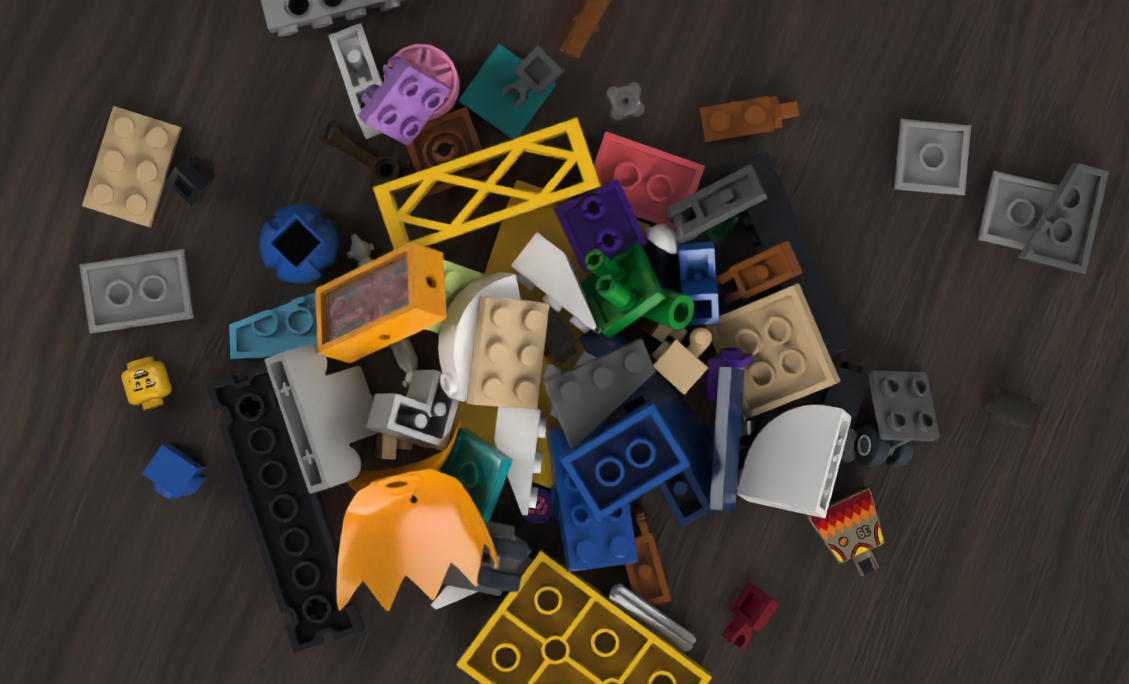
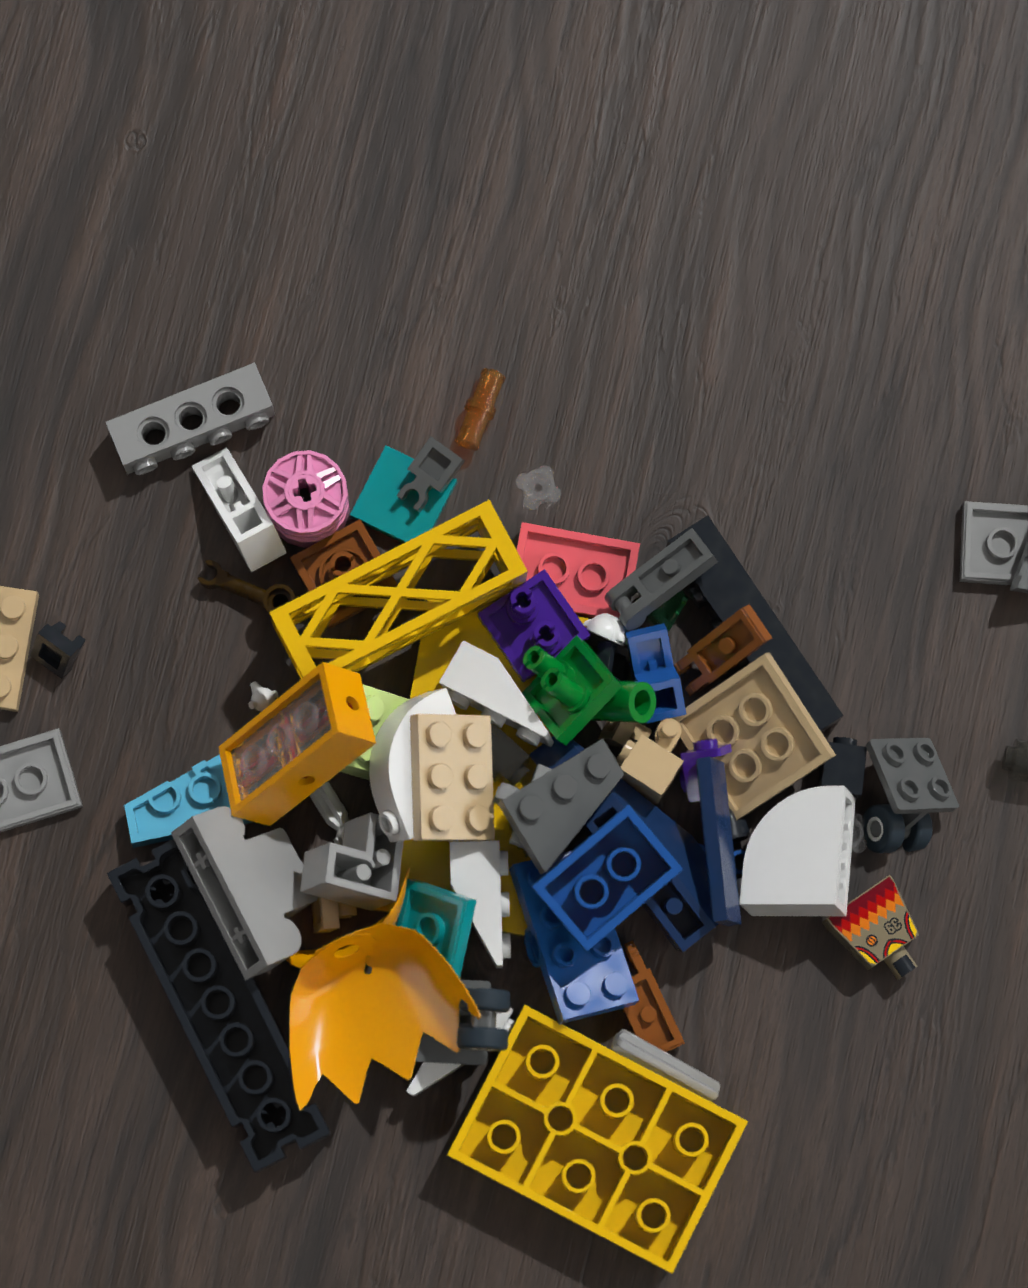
camera: 15 degrees left, 10 degrees down
(146, 383) = (37, 887): yellow head -> none
(175, 472) = (84, 982): blue brick -> none
(314, 264) = (212, 719): blue piece -> none
(402, 101) = (289, 511): medium lavender plate -> none
(543, 508) = (517, 965): tile -> none
(745, 118) = (676, 486): dark orange hinge -> none
(751, 612) = (779, 1041): dark red plate -> none
(932, 157) = (892, 497): light grey tile -> none

